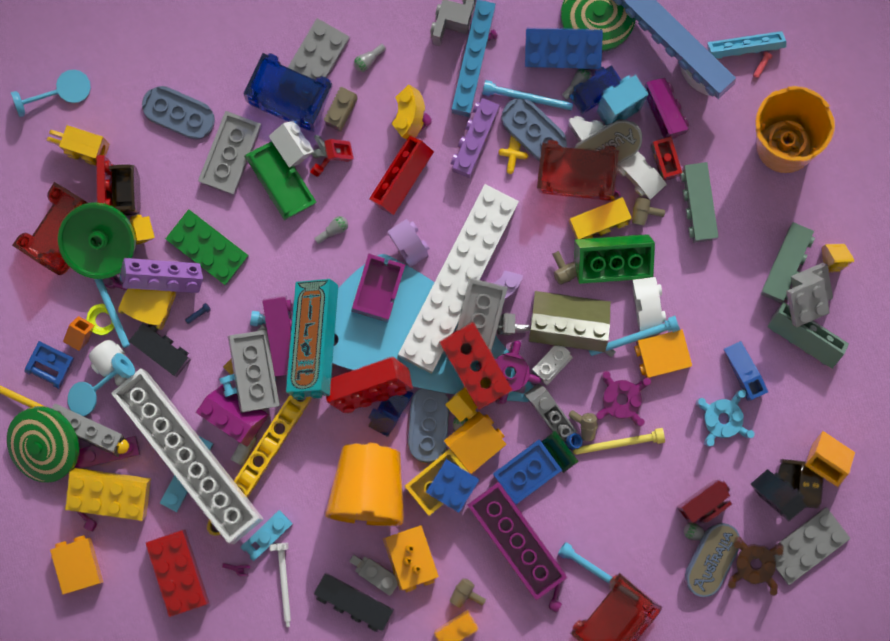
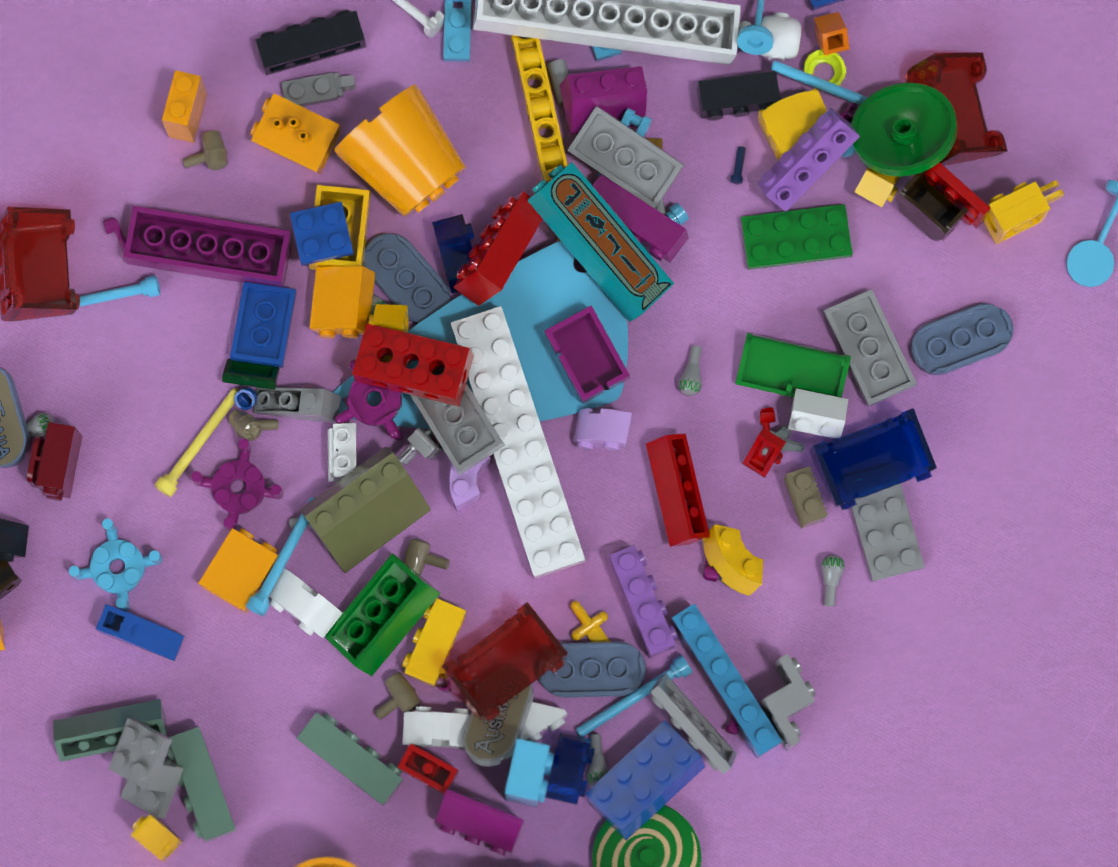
camera: 130 degrees right, 5 degrees down
(512, 50) = (690, 719): none -> light grey plate

